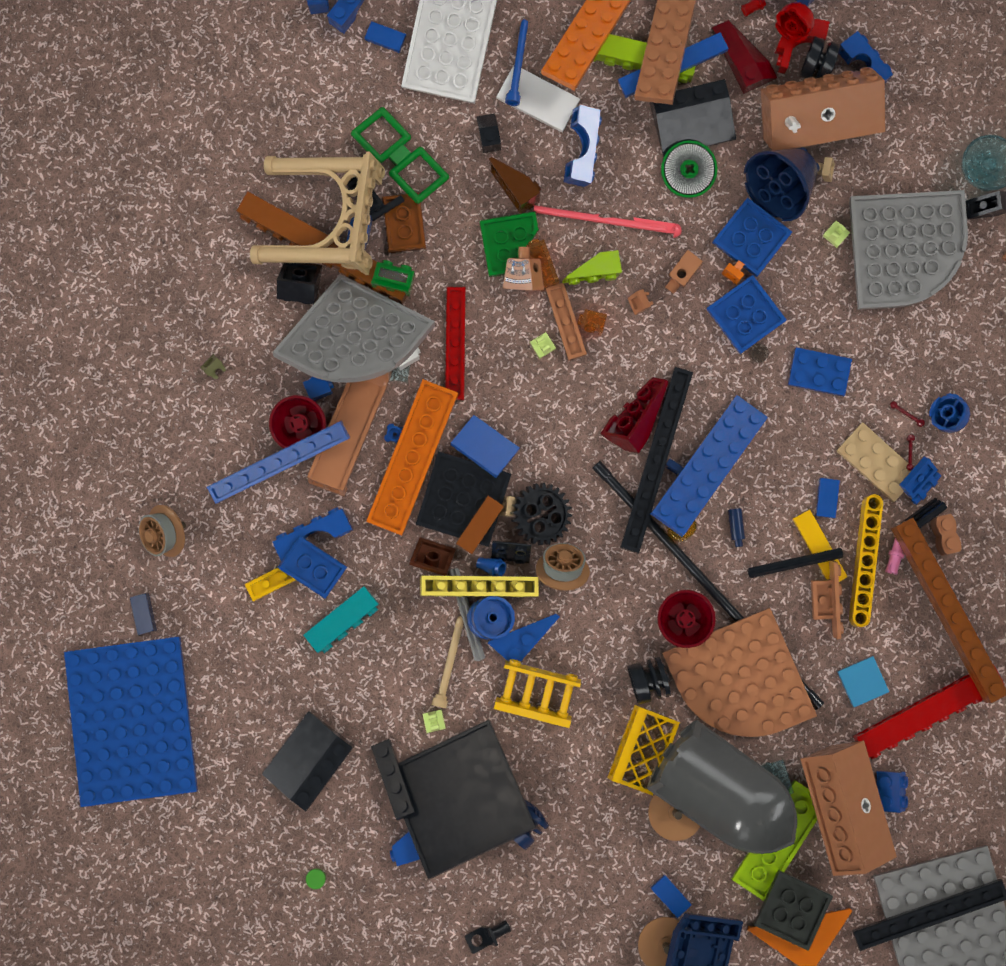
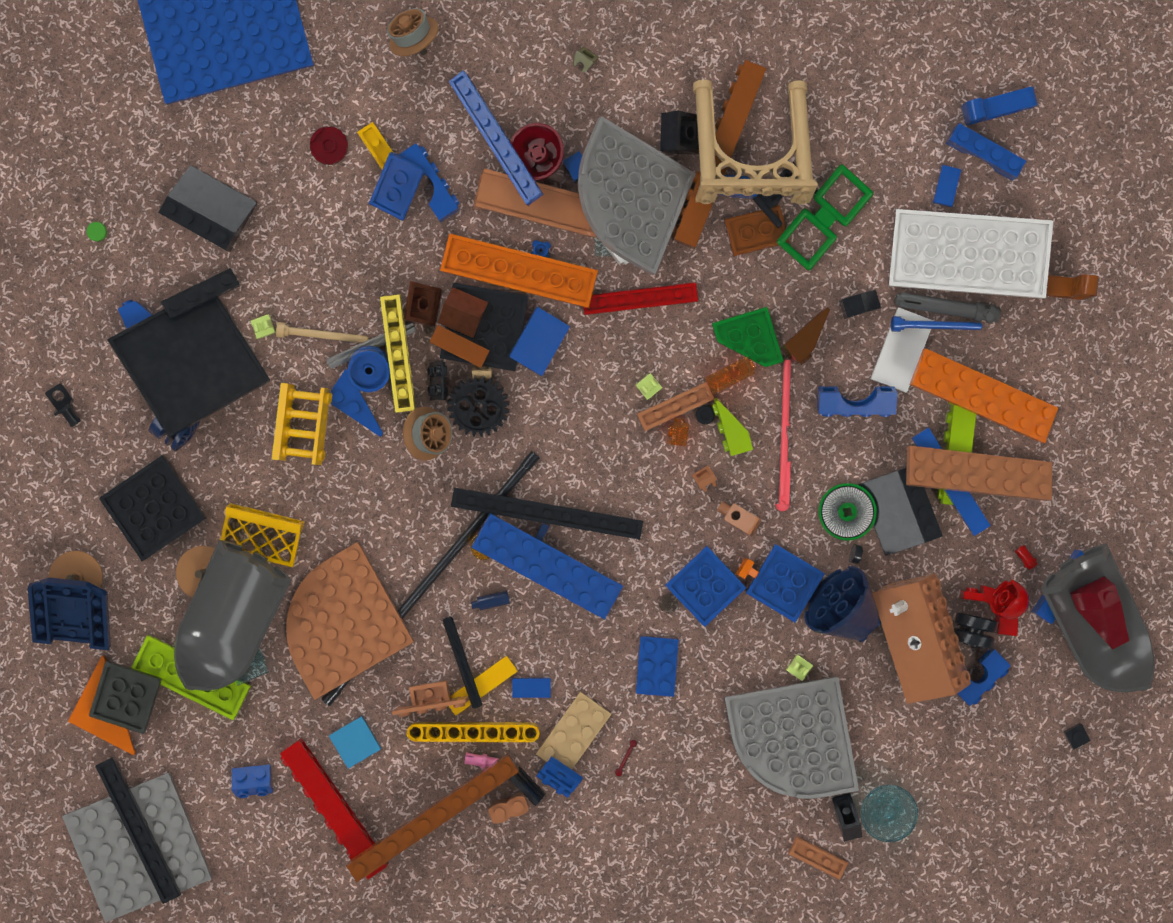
camera: 80 degrees right, 5 degrees up
(143, 613) = (331, 26): dark blue slope -> none
(267, 634) = (334, 148): none -> dark red tile
(341, 620) = (349, 222): teal brick -> none
(393, 277) = (694, 227): green window -> none
(446, 517) = (462, 312): none -> copper slope
(492, 566) = (420, 365): blue cone -> none
(510, 22) = (949, 307): none -> dark grey cylinder
(523, 272) = (717, 357): nougat torso -> none
(577, 294) = (705, 415): none -> black tile
(603, 857) = (152, 508): none -> black plate
(636, 422) = (580, 487): dark red wedge -> none
(649, 680) = (327, 531): black wheel -> none
(671, 896) = (124, 578): blue tile -> none
(697, 619) = (380, 560): dark red piece -> none
(731, 165) = (856, 554): none -> black tile
(745, 60) = (969, 555): dark red wedge -> none
(827, 169) = (863, 650): tan tile -> none
(848, 808) = (227, 739): nougat piece -> none
(910, 439) = (601, 764): dark red hinge -> none
(950, 413) = (629, 799): blue cylinder -> none

